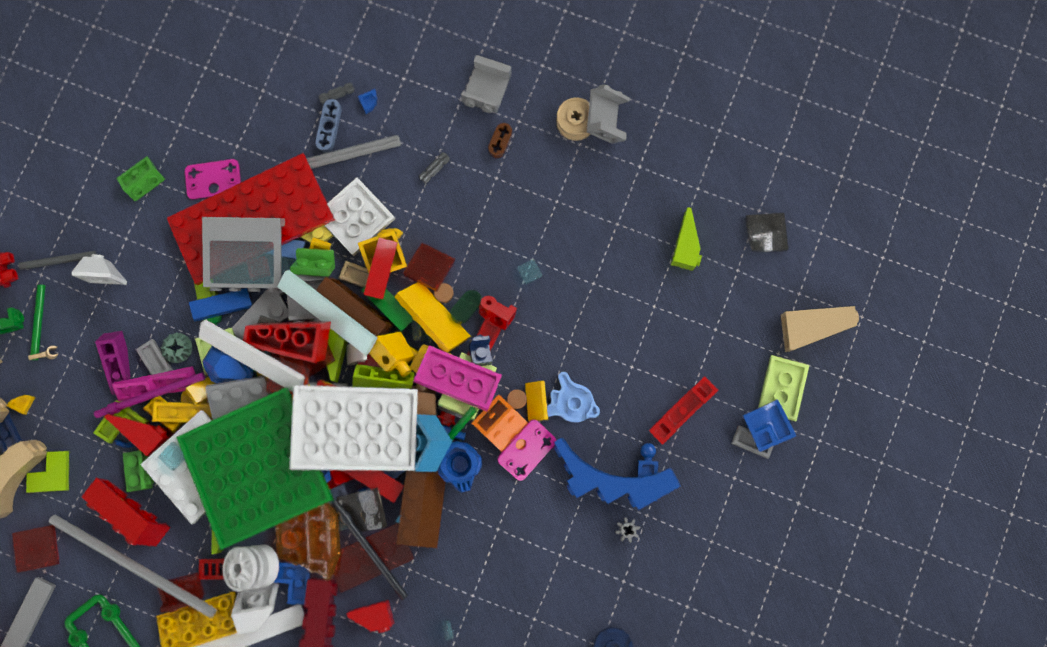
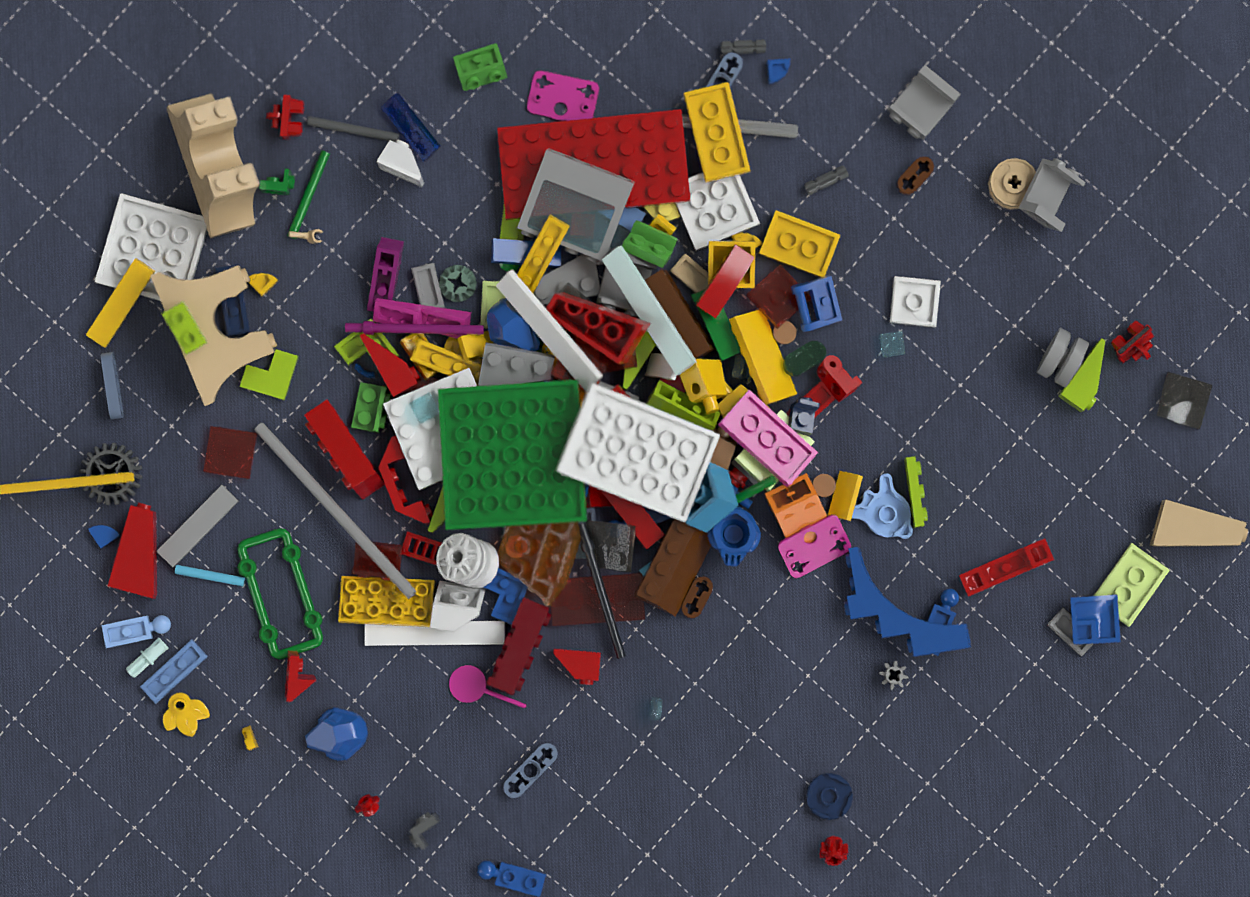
camera: 20 degrees right, 5 degrees up
(100, 241) = (410, 127): none -> clear blue plate
(180, 535) = (416, 510): none -> red slope
(229, 299) = (542, 252): none -> yellow tile
(337, 161) = (716, 132): none -> yellow tile
(431, 222) = (799, 244): none -> yellow plate
(444, 524) = (692, 594): none -> reddish brown beam
(464, 257) = (823, 301): none -> blue plate
(535, 233) = (915, 301): none -> white tile
(590, 377) = (916, 491): none -> lime plate
(664, 231) = (1065, 359): none -> light grey wheel
(716, 204) = (1136, 346): none -> red hips

